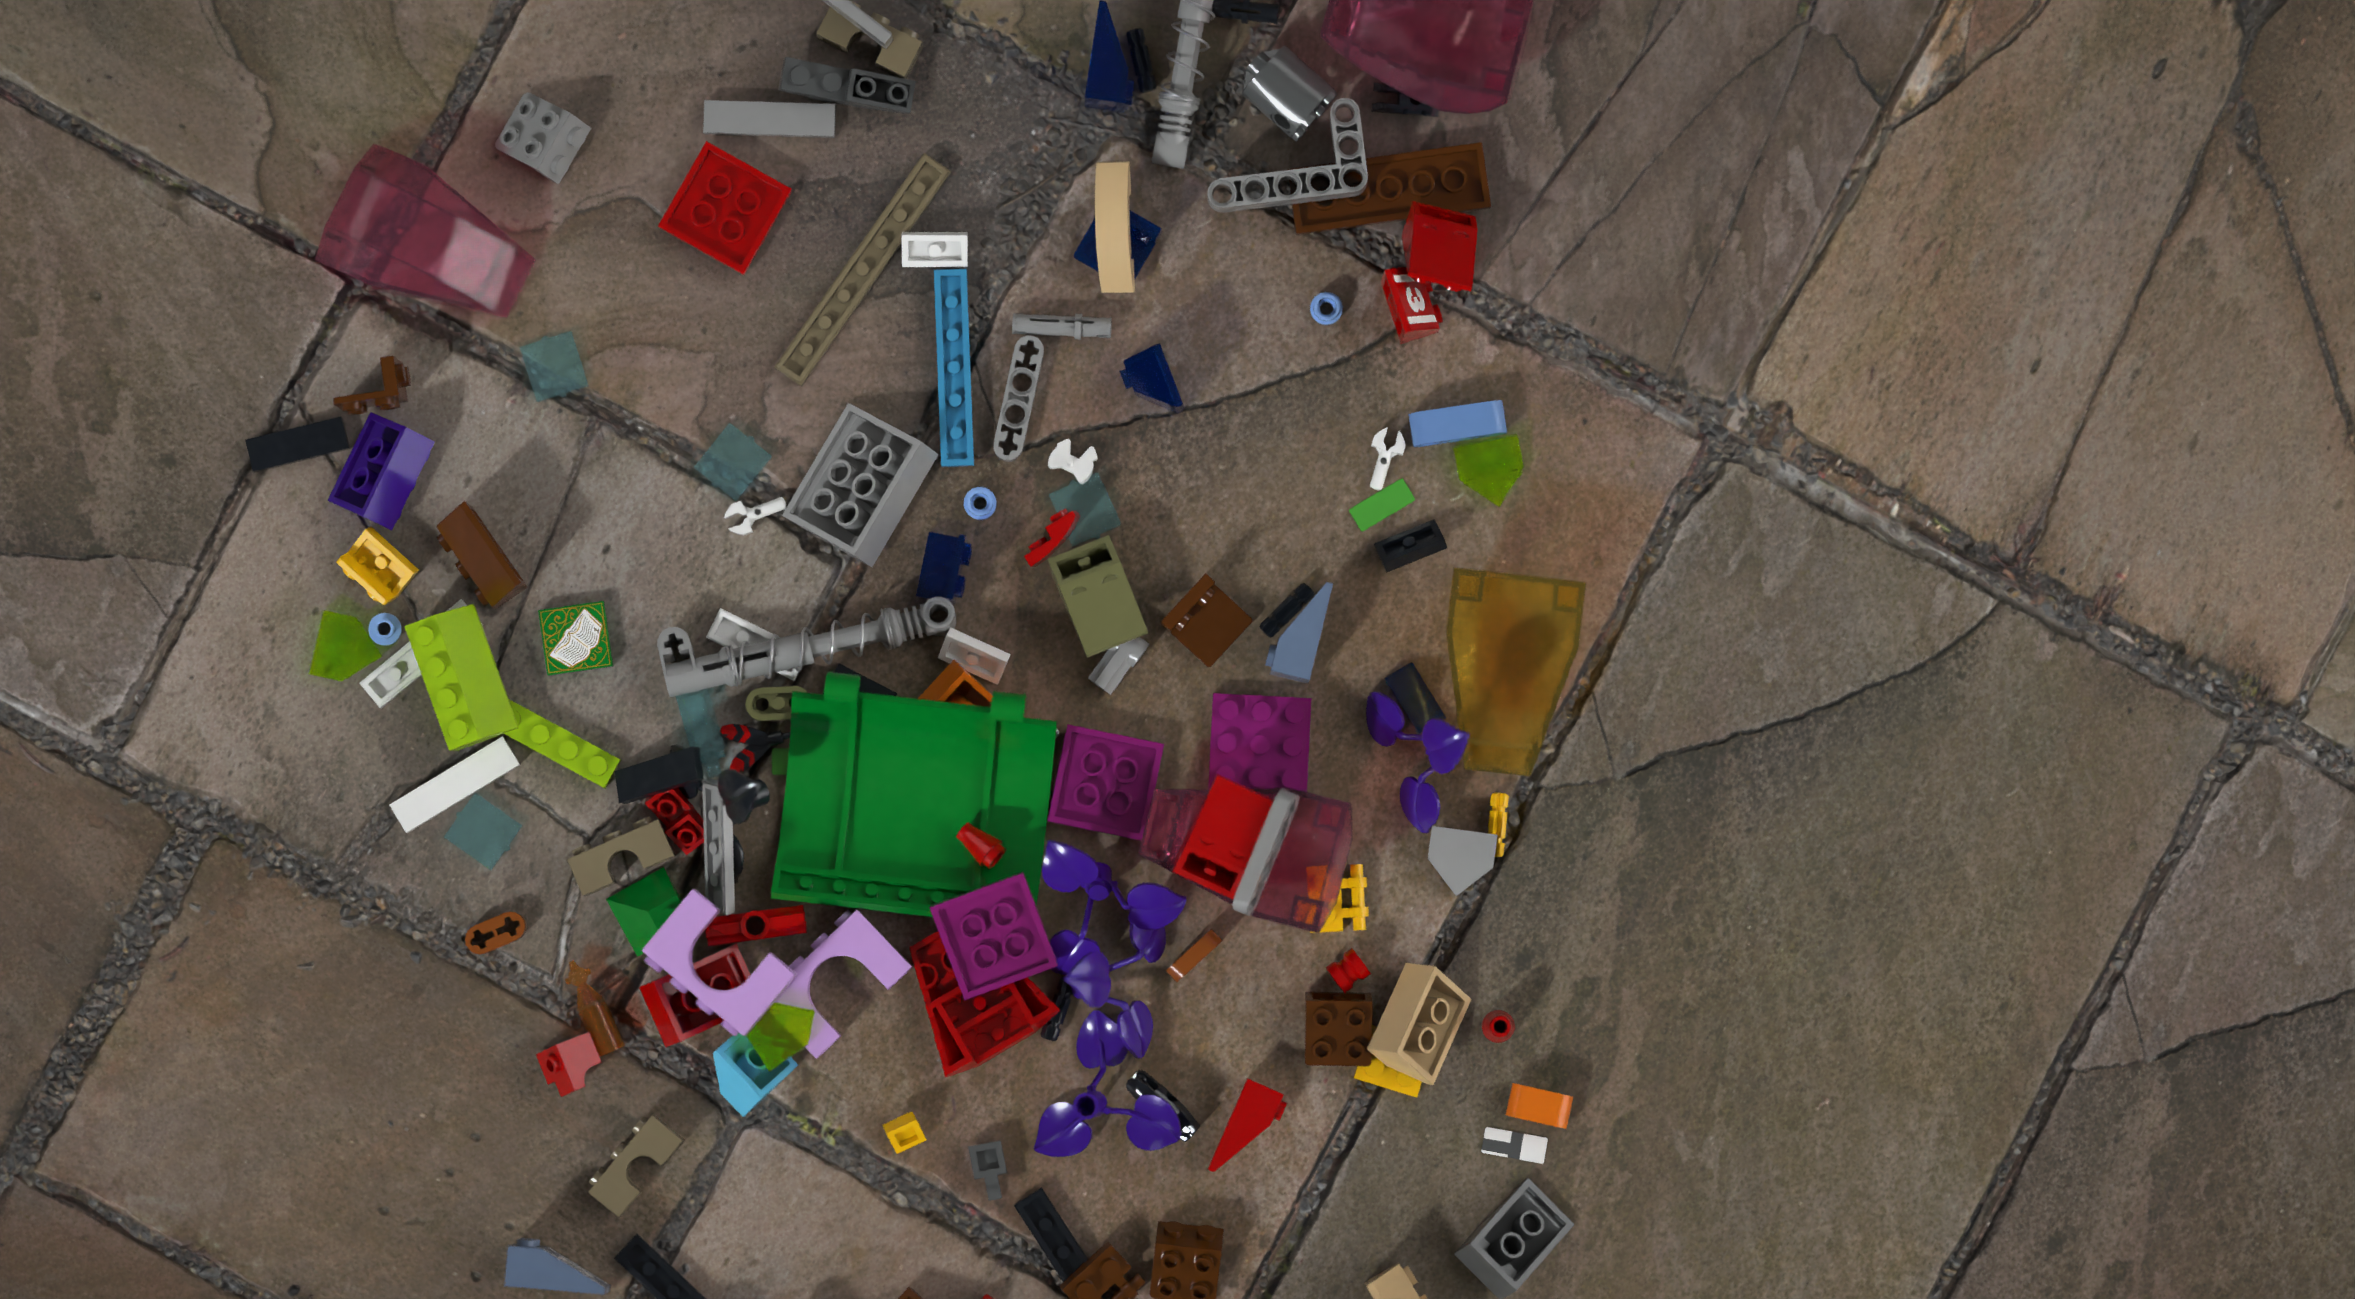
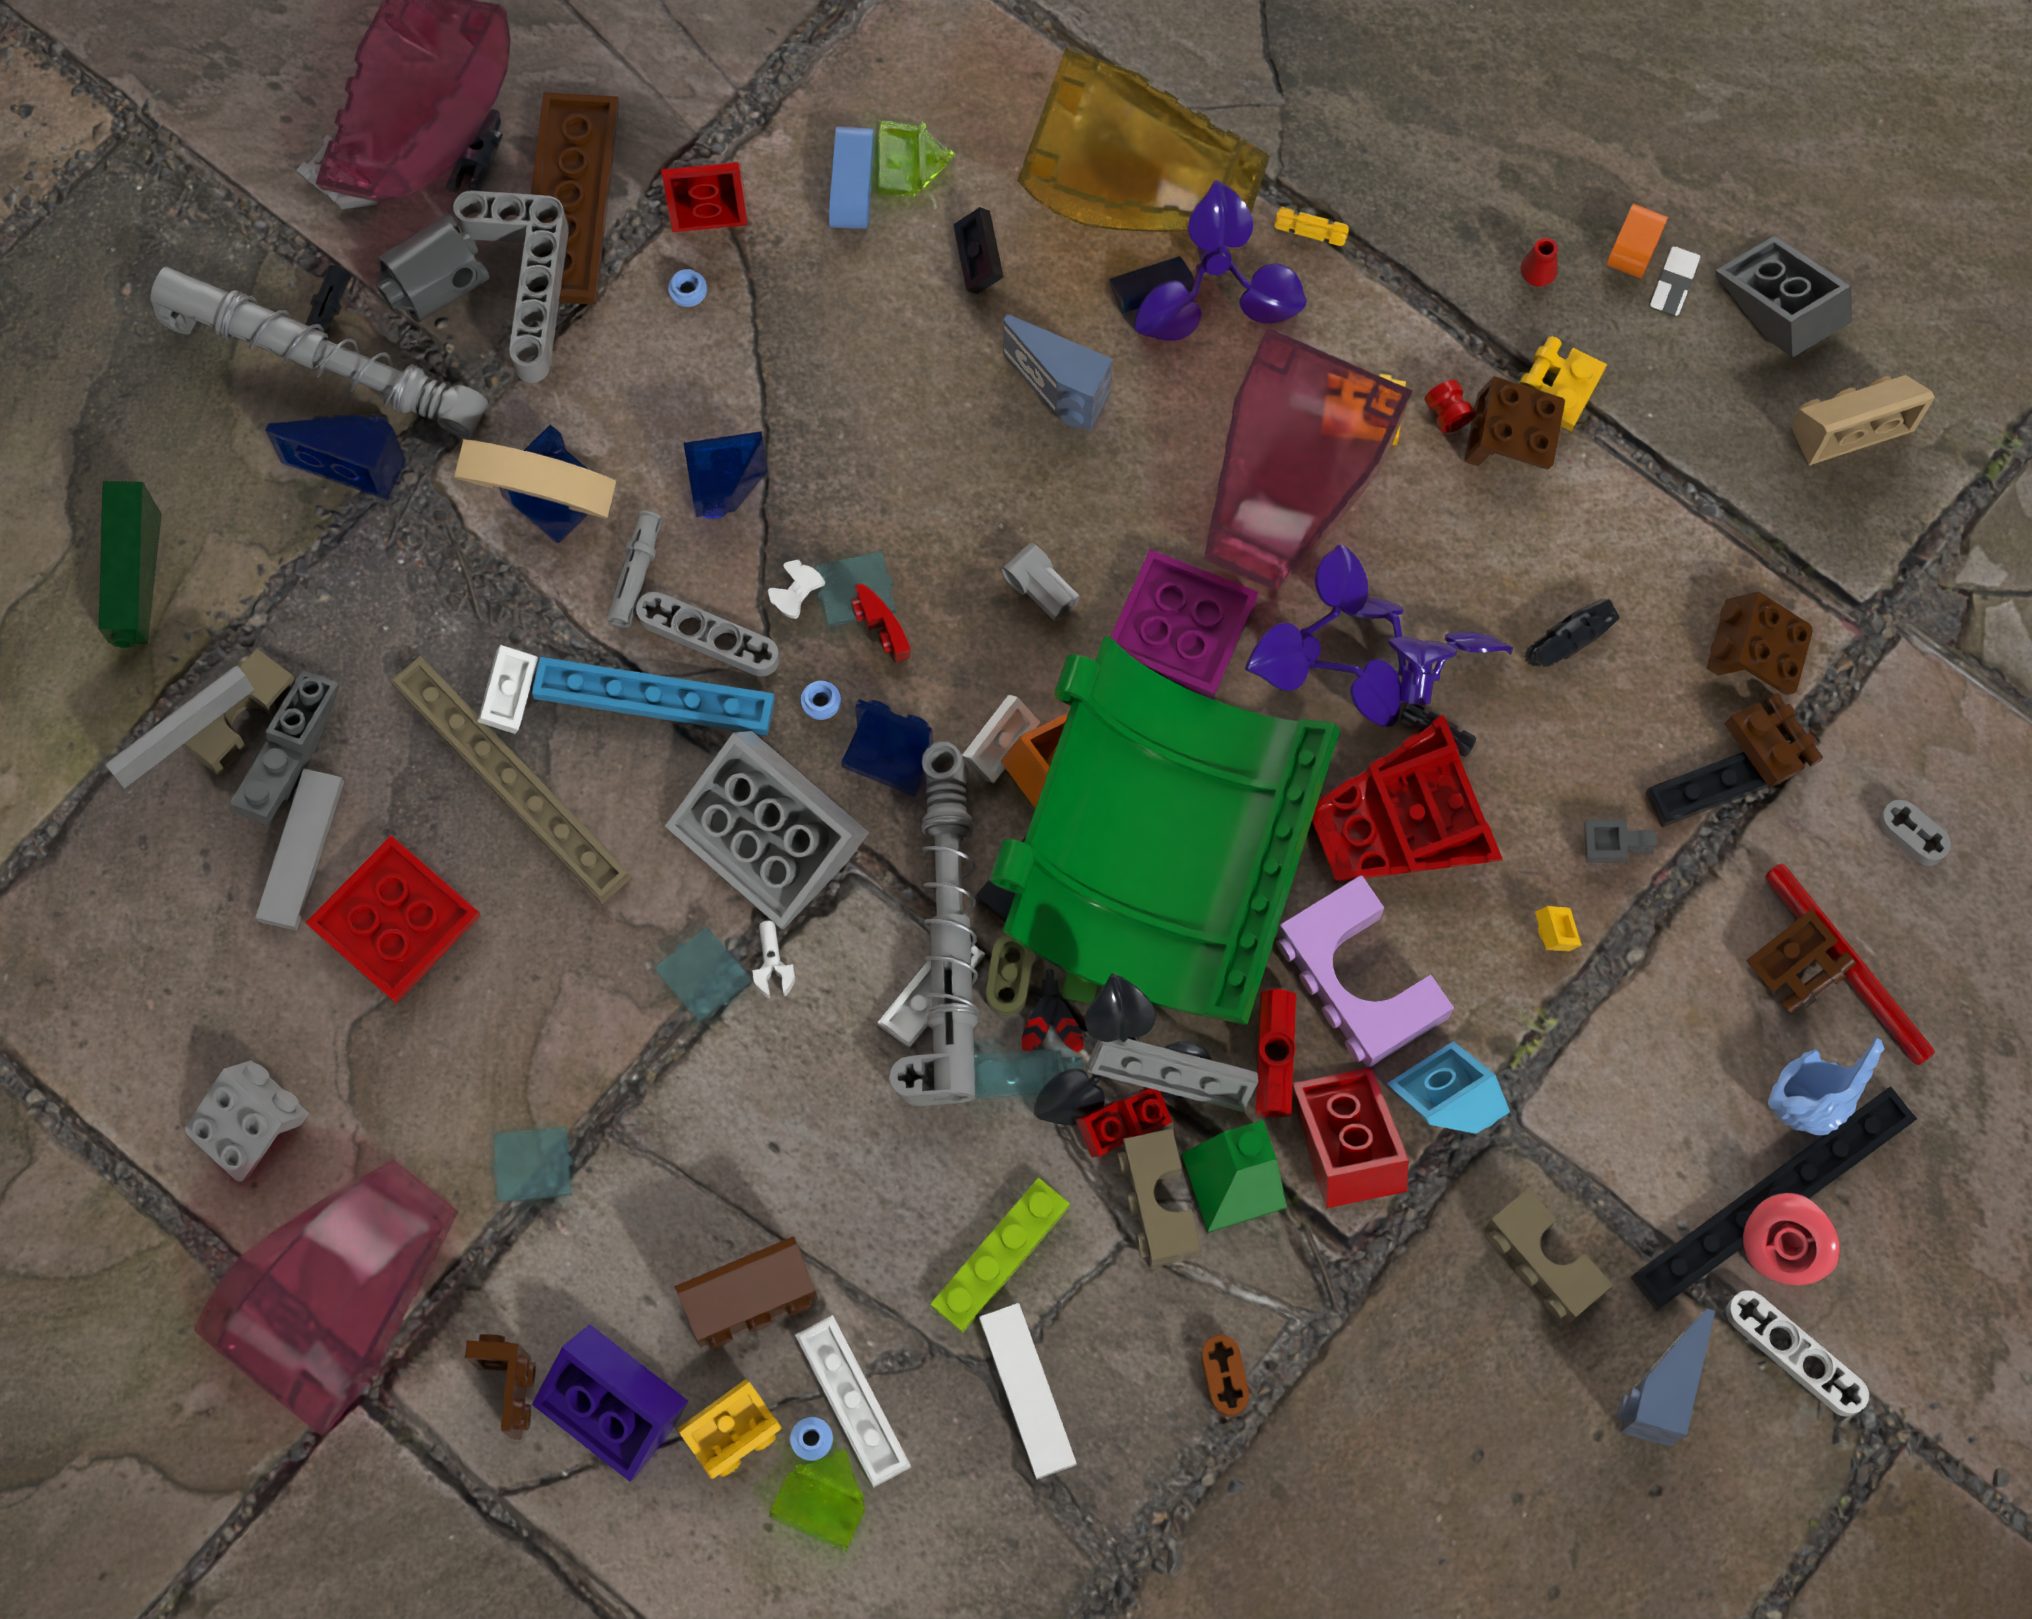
camera: 75 degrees left, 15 degrees down
(297, 444) = (549, 1505): black tile -> none
(461, 677) = (895, 1345): lime slope -> none
(483, 831) = (1093, 1368): clear light blue piece -> none
(568, 1063) = (1408, 1312): red brick -> none
(575, 638) = (876, 1203): tile -> none
(594, 1012) = (1350, 1270): clear orange wheel -> none
(659, 775) = (1069, 1126): black tile -> none
(673, 951) = (1294, 1140): lavender arch -> none
(781, 1033) = (1412, 1044): clear neon green slope -> none
(982, 846) = (1230, 769): red cone -> none
(993, 935) = (1343, 766): magenta plate -> none
(1062, 1125) = (1585, 749): dark purple plant -> none
(1097, 596) = (961, 581): olive slope -> none
(1194, 955) = (1402, 566): dark orange beam -> none
(1206, 621) = (1015, 479): reddish brown bracket -> none
(1223, 836) = (1279, 475): red slope -> none
(1250, 1117) = (1604, 544): red slope -> none
(1260, 740) = (1167, 454): magenta plate -> none
(1265, 852) = (1307, 428): light grey beam -> none
(1287, 610) = (1022, 394): black axle -> none
(1382, 504) = (924, 278): bright green sticker -> none
(1384, 457) = (868, 261): white bar -> none
(1419, 1022) = (1523, 338): tan slope -> none
(1440, 246) = (648, 141): red slope -> none
(1461, 856) = (1341, 264): light grey slope -> none

